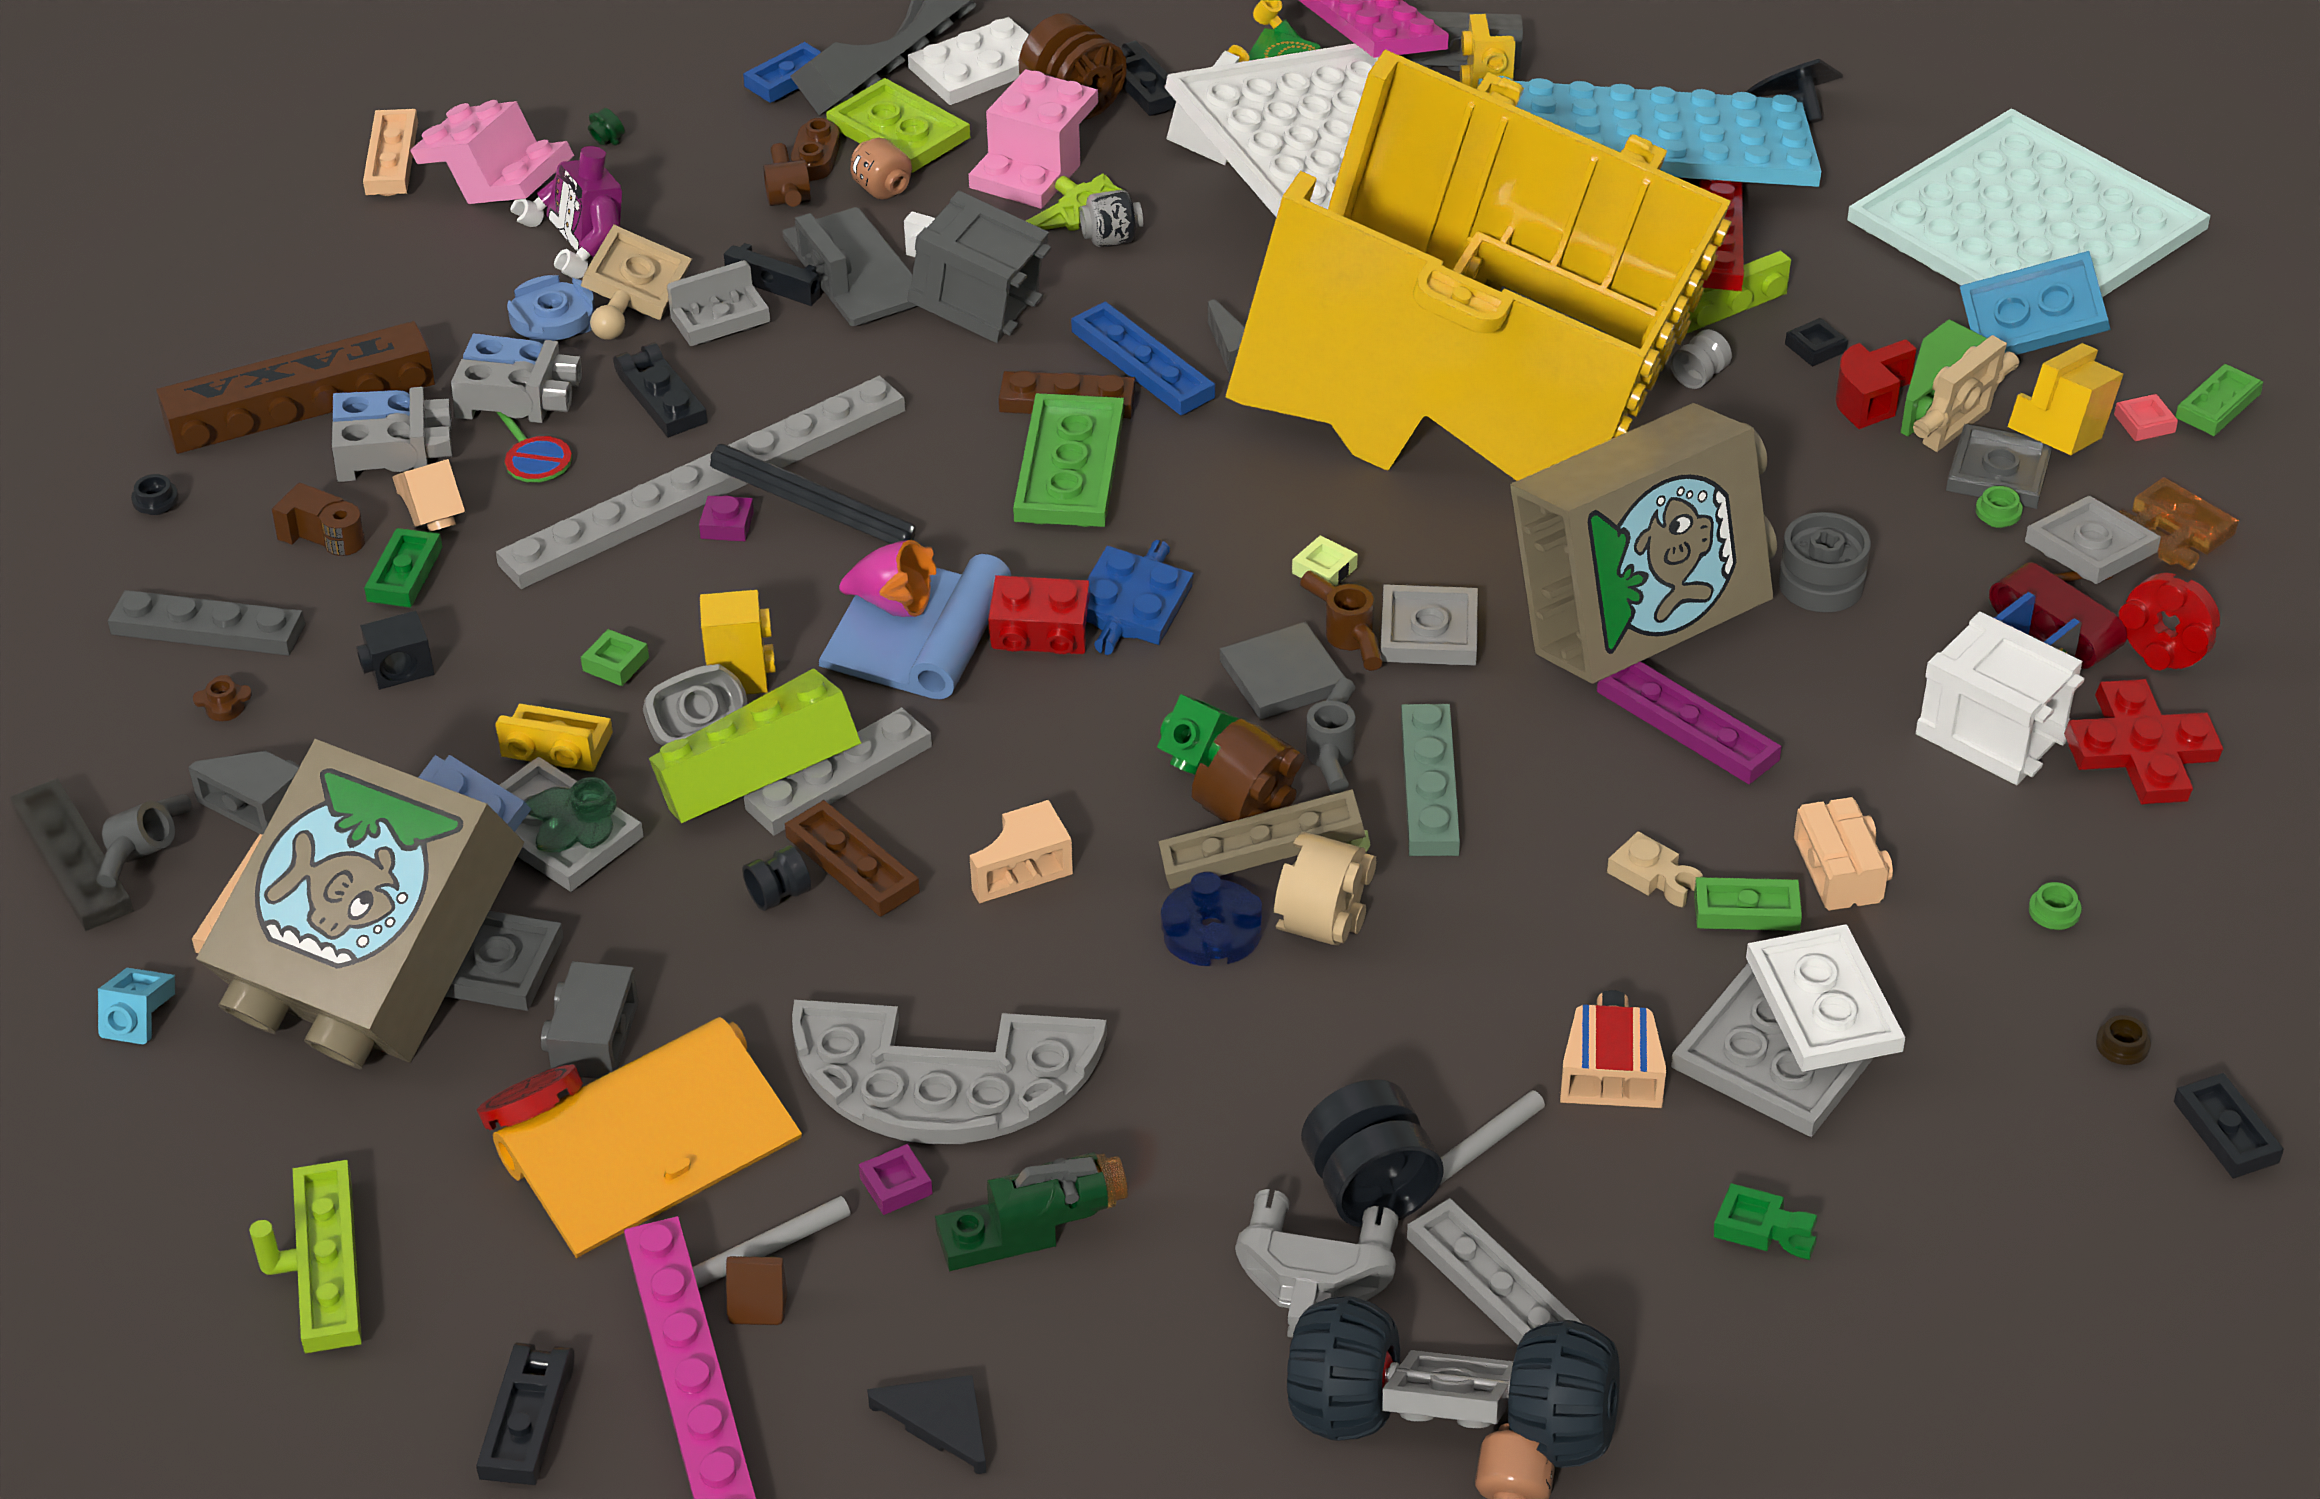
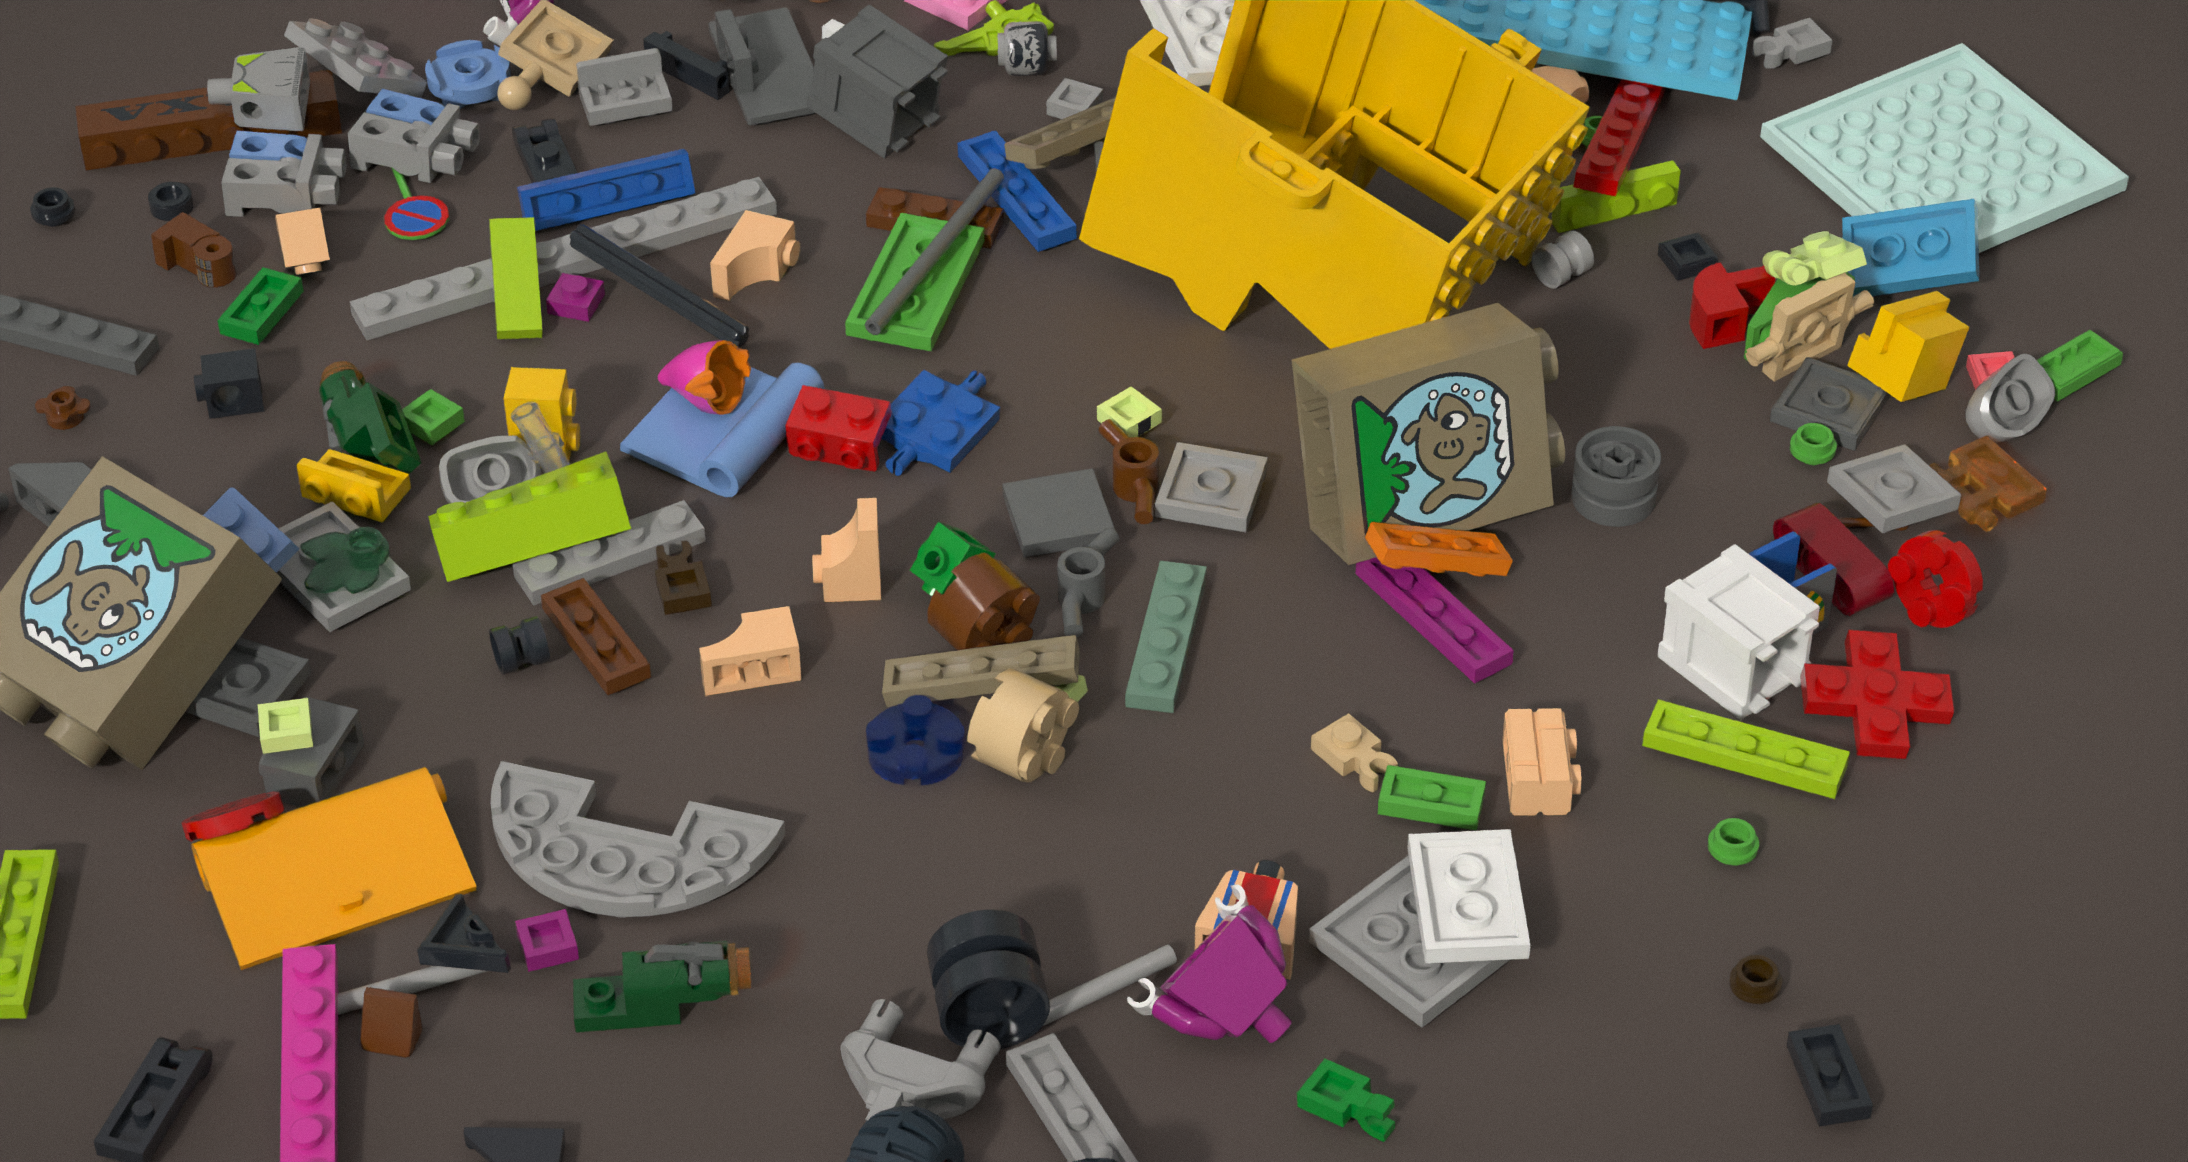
camera: 10 degrees right, 0 degrees up
(276, 473) = (170, 200): none -> black tile
(356, 348) = (266, 89): none -> light grey torso
(433, 307) = (354, 57): none -> light grey plate
(548, 668) = (365, 419): none -> dark green plate
(565, 994) = (285, 725): none -> yellowish green plate
(664, 506) = (515, 278): none -> lime tile
(729, 407) = (607, 189): none -> blue plate
(747, 668) = (543, 444): none -> clear pin
(810, 1194) = (462, 942): none -> black tile
(899, 451) = (754, 252): none -> light nougat arch
(923, 792) = (681, 581): none -> dark brown plate
(1083, 428) = (934, 252): none -> dark grey piece
(1096, 741) = (851, 558): none -> light nougat arch
(1173, 264) = (1073, 98): none -> light grey plate
(1190, 291) = (1061, 137): none -> dark tan plate
(1612, 1117) = (1225, 980): none -> magenta torso
(1677, 656) = (1438, 549): none -> orange plate
(1852, 125) = (1796, 41): none -> light grey plate
(1957, 326) = (1819, 256): none -> yellowish green plate
(2037, 812) = (1746, 749): none -> lime plate
(2175, 441) = (2010, 400): none -> light grey piece

